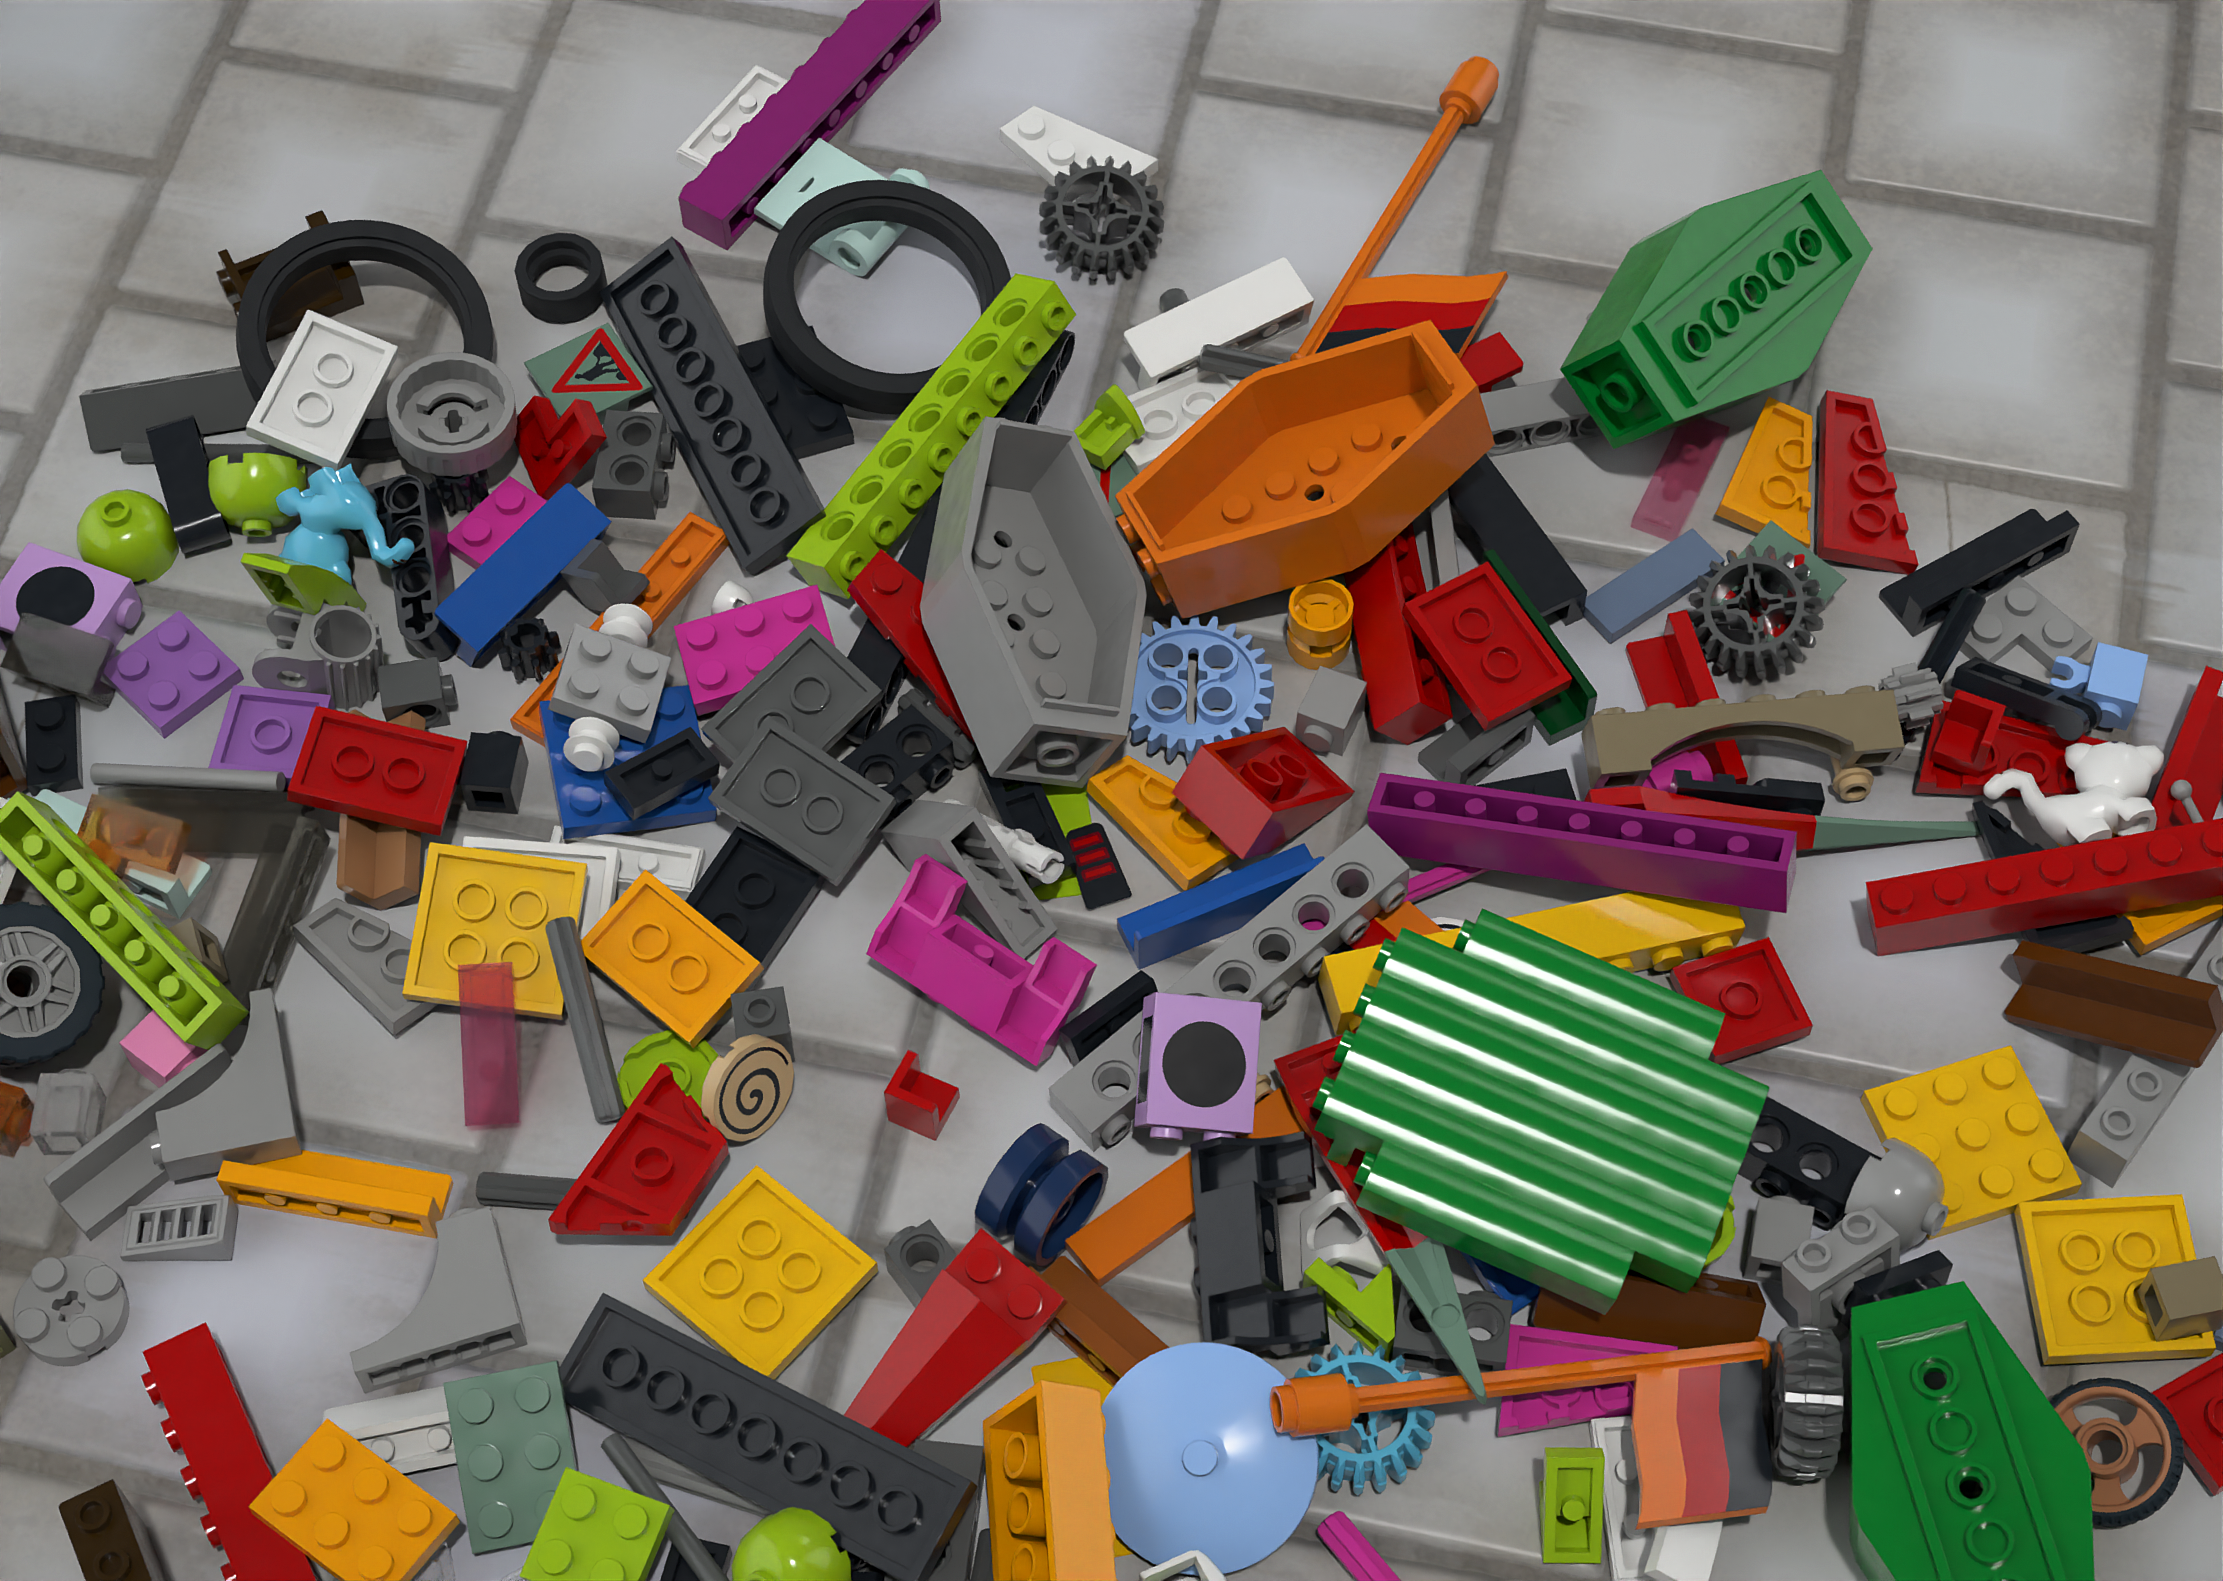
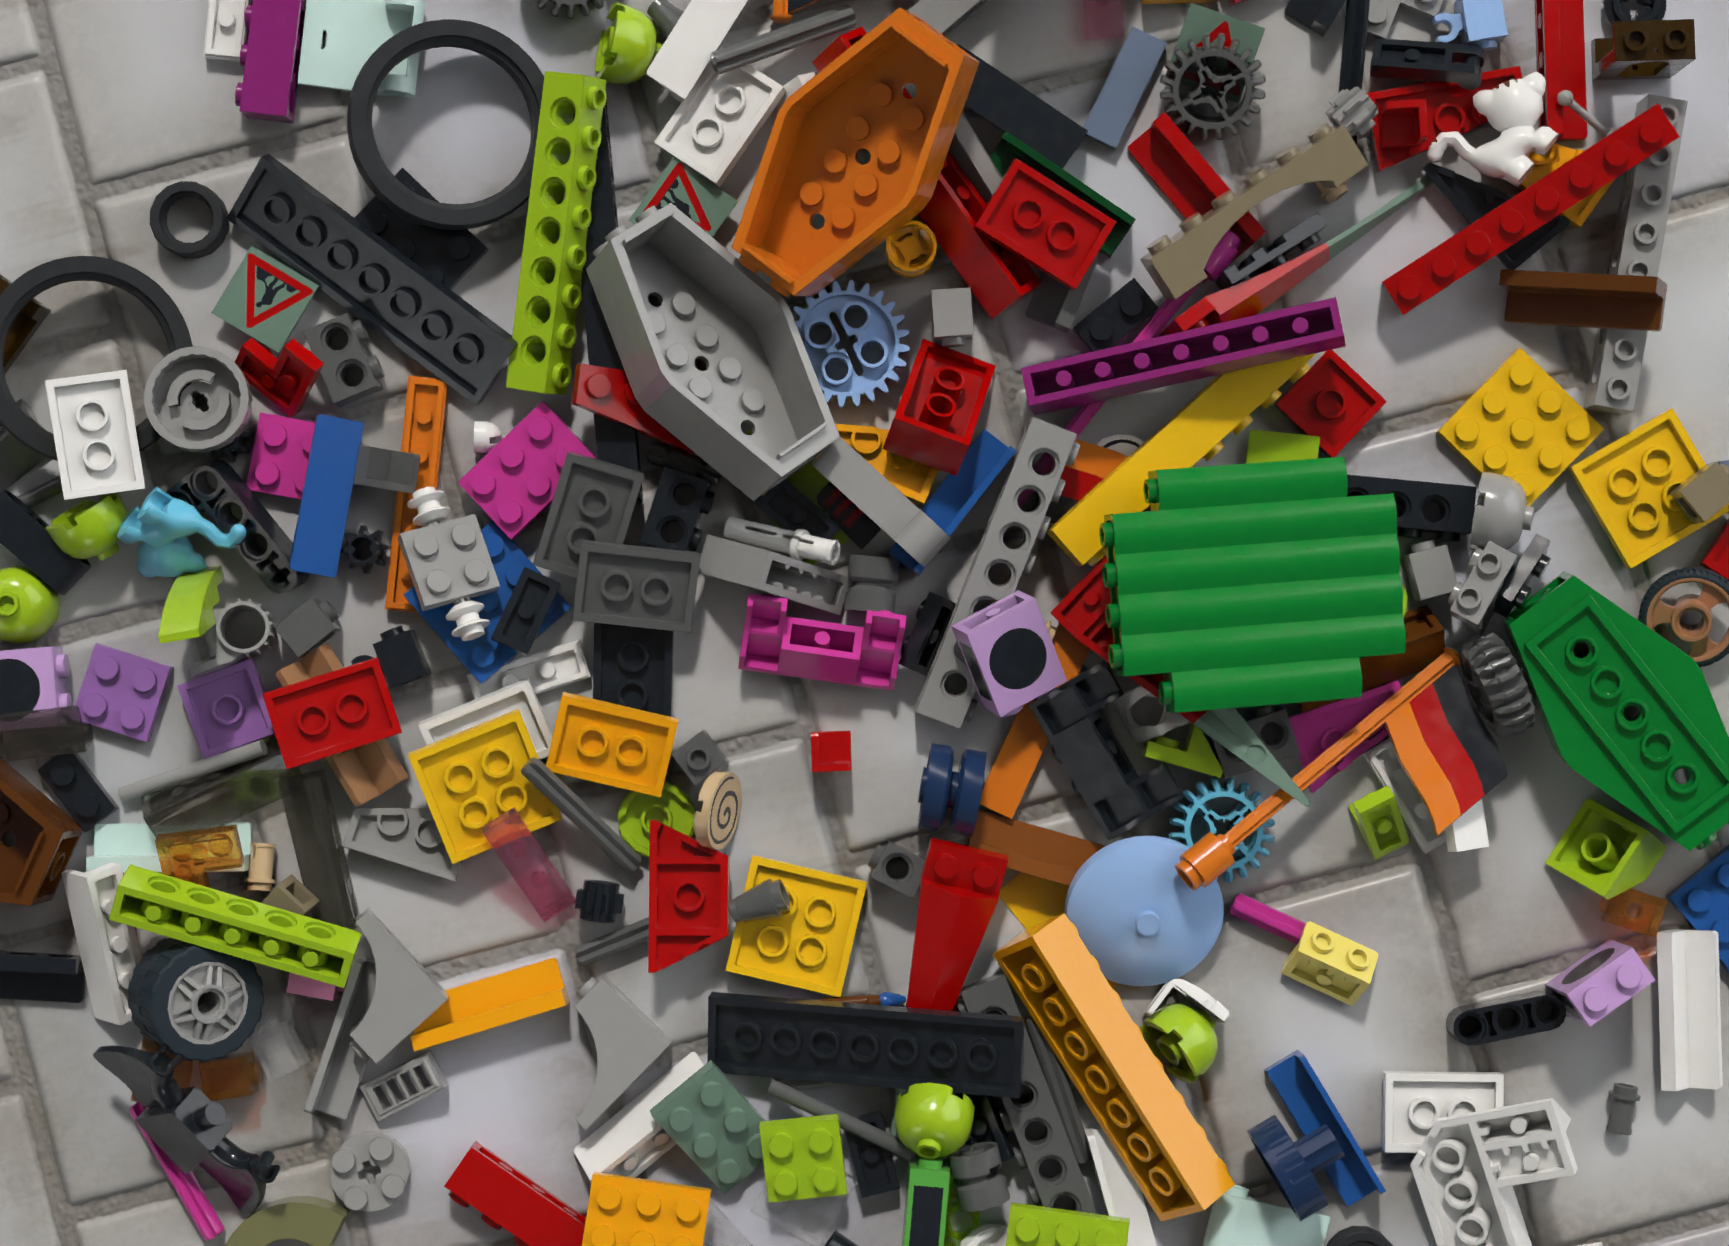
camera: 30 degrees left, 30 degrees up
(196, 903) = (261, 867): none -> tan pin
(544, 1128) = (599, 901): none -> black gear
(733, 1212) = (760, 902): none -> dark grey cone
(1084, 924) = (871, 583): none -> dark grey wheel
(1109, 428) = (677, 165): lime tile -> none
(1122, 302) = (626, 46): none -> lime cylinder
(1148, 860) = (881, 501): none -> light grey beam

